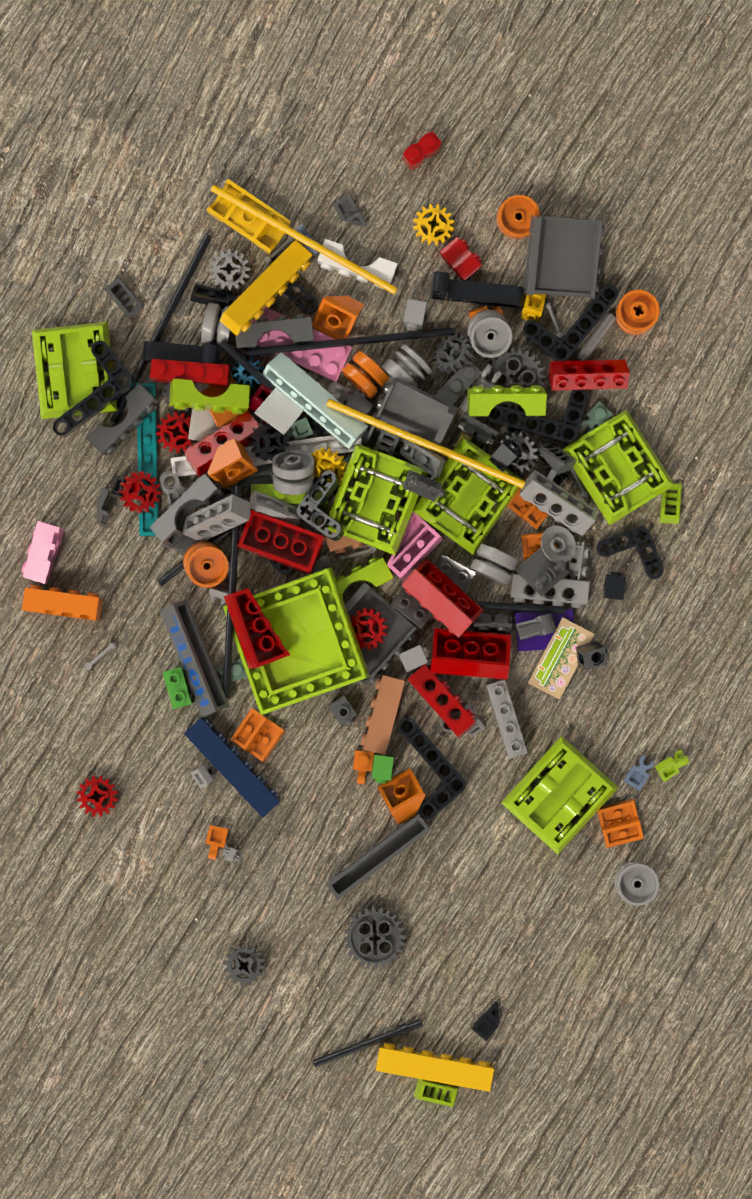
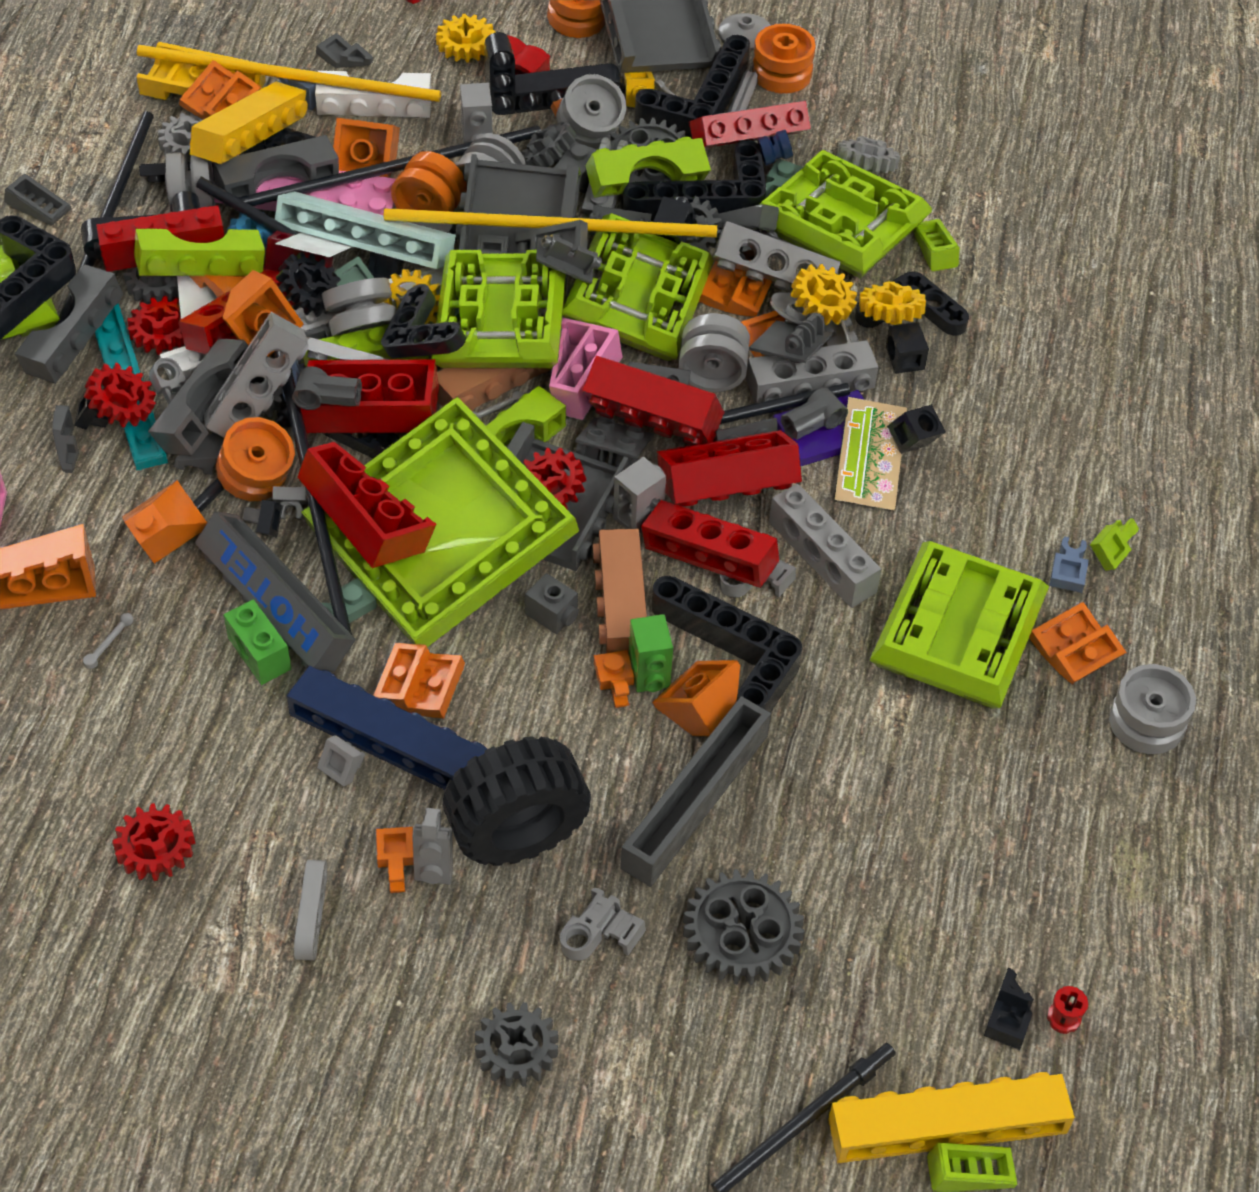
camera: 20 degrees left, 35 degrees down
(145, 585) = (165, 521): none -> orange slope
(165, 859) = (310, 910): none -> light grey beam
(201, 604) = (266, 517): none -> black tile
(251, 544) = (317, 387): none -> dark grey piece
(255, 248) = (216, 90): none -> orange slope
(280, 848) = (516, 801): none -> black tyre
(308, 909) = (603, 920): none -> light grey piece
(515, 1026) = (1077, 1008): none -> red bush
(567, 546) = (824, 293): none -> yellow gear
(597, 398) = (775, 147): none -> dark blue wheel
(607, 560) = (892, 303): none -> yellow gear
(622, 275) = (742, 24): none -> light grey dish
(656, 421) = (869, 154): none -> light grey gear

